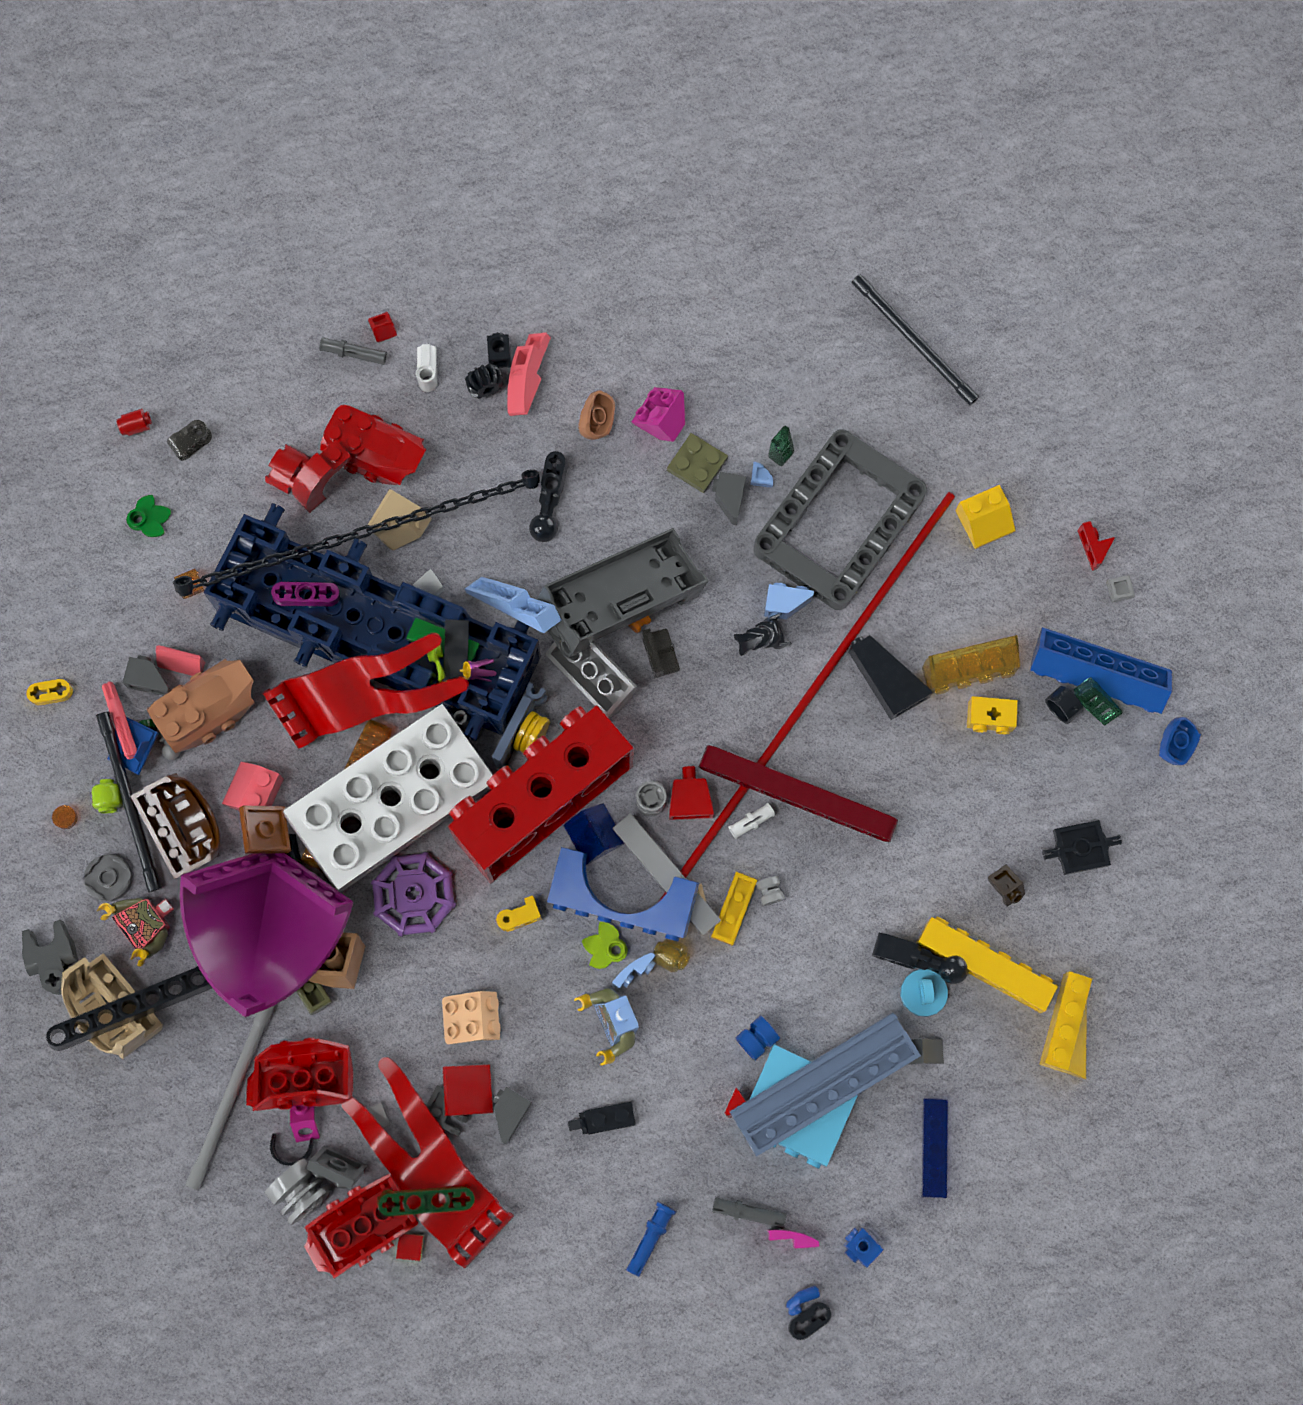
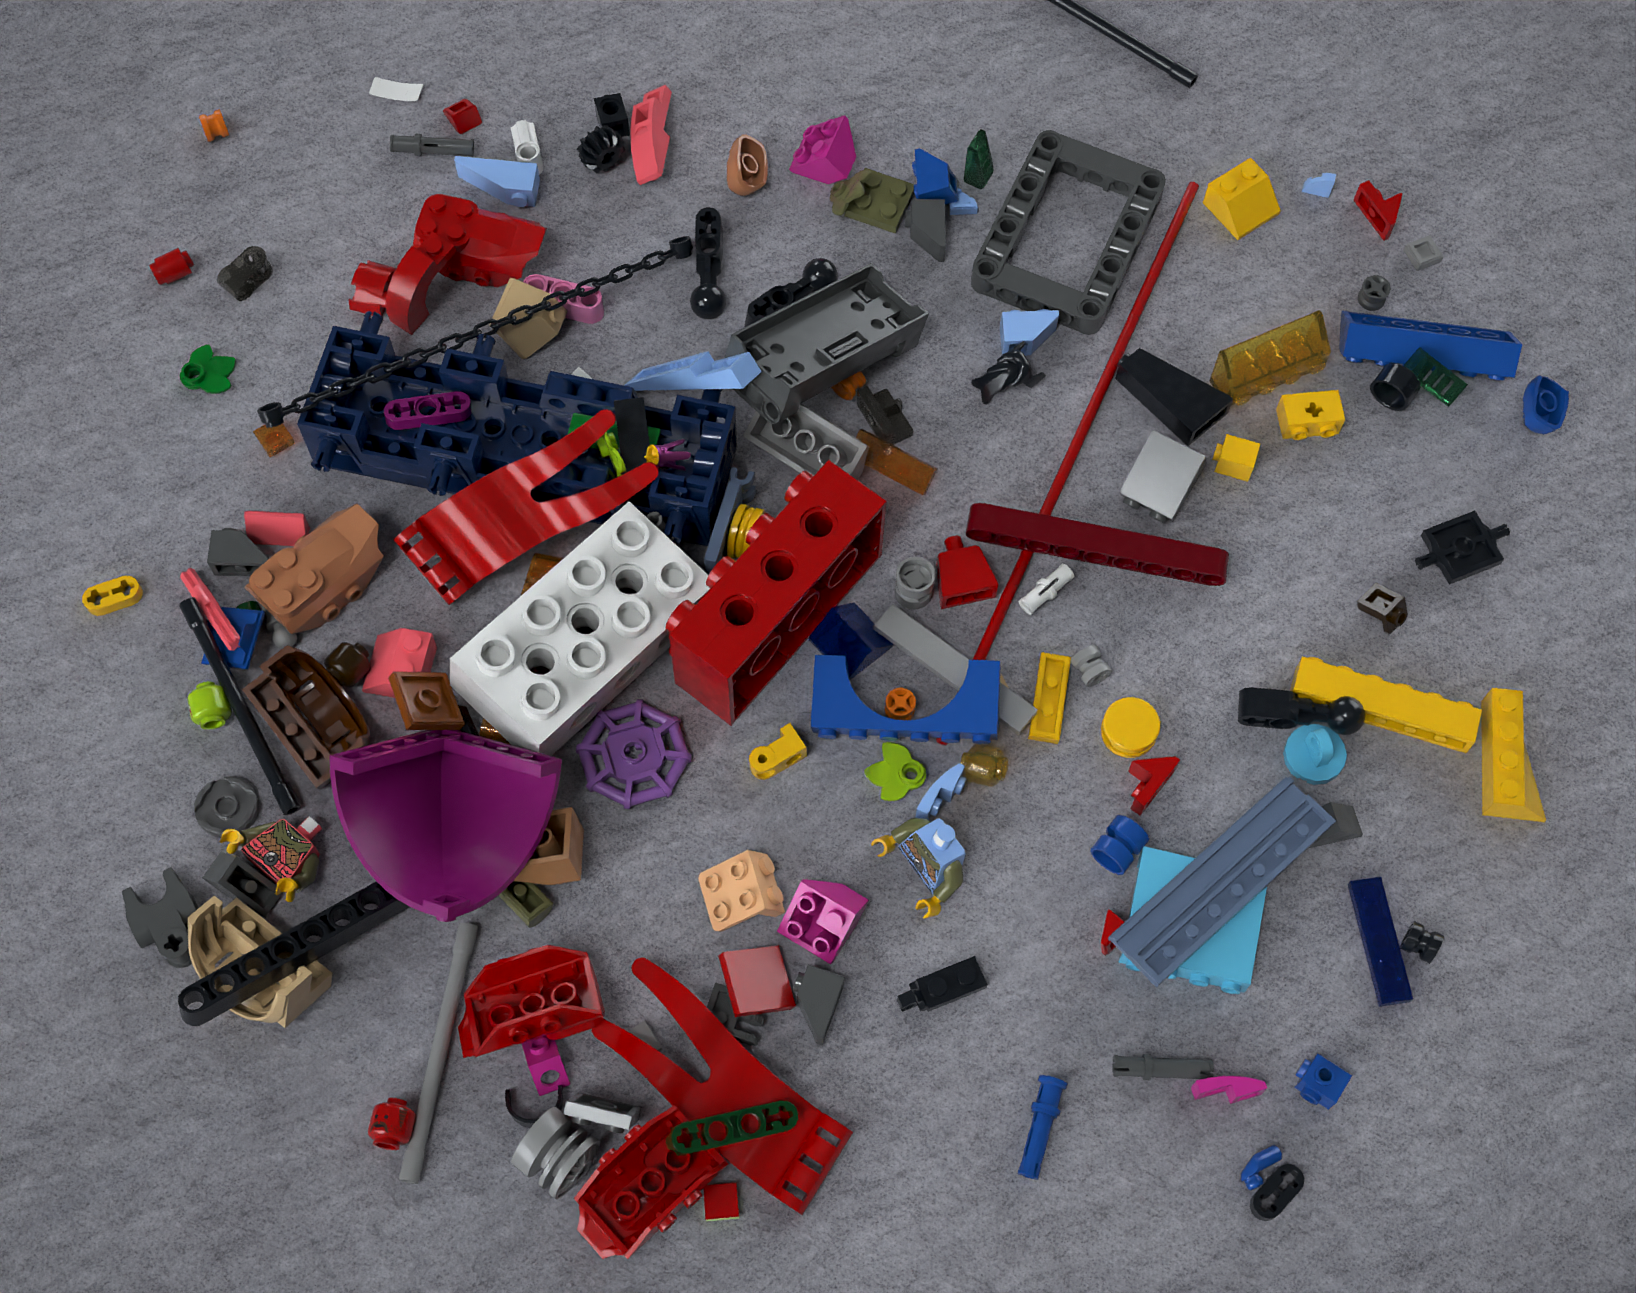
camera: 10 degrees left, 10 degrees down
(64, 817) = (156, 743): clear orange tile -> none
(109, 941) = (240, 880): none -> dark grey slope
(185, 303) = (214, 125): none -> orange wheel
(186, 1144) = (391, 1124): none -> red head
(213, 783) = (348, 663): none -> dark brown head
(333, 293) = (395, 90): none -> white sticker
(408, 395) = (506, 180): none -> light blue slope
(425, 497) = (576, 306): none -> bright pink beam
(526, 1050) = (822, 917): none -> dark pink slope
(619, 890) = (900, 699): none -> orange wheel
(633, 522) = (815, 276): none -> black beam
(658, 693) = (897, 463): none -> clear orange tile
(671, 454) = (848, 190): none -> olive plate
(742, 456) = (934, 178): none -> blue slope
(788, 945) = (1130, 727): none -> yellow head
(798, 987) = (1153, 776): none -> red slope
(862, 746) = (1162, 477): none -> slope
(924, 739) = (1236, 457): none -> yellow brick
(962, 1154) = (1420, 941): none -> black wheel
(1052, 515) = (1320, 185): none -> light blue tile
(1072, 613) = (1374, 285): none -> dark grey wheel

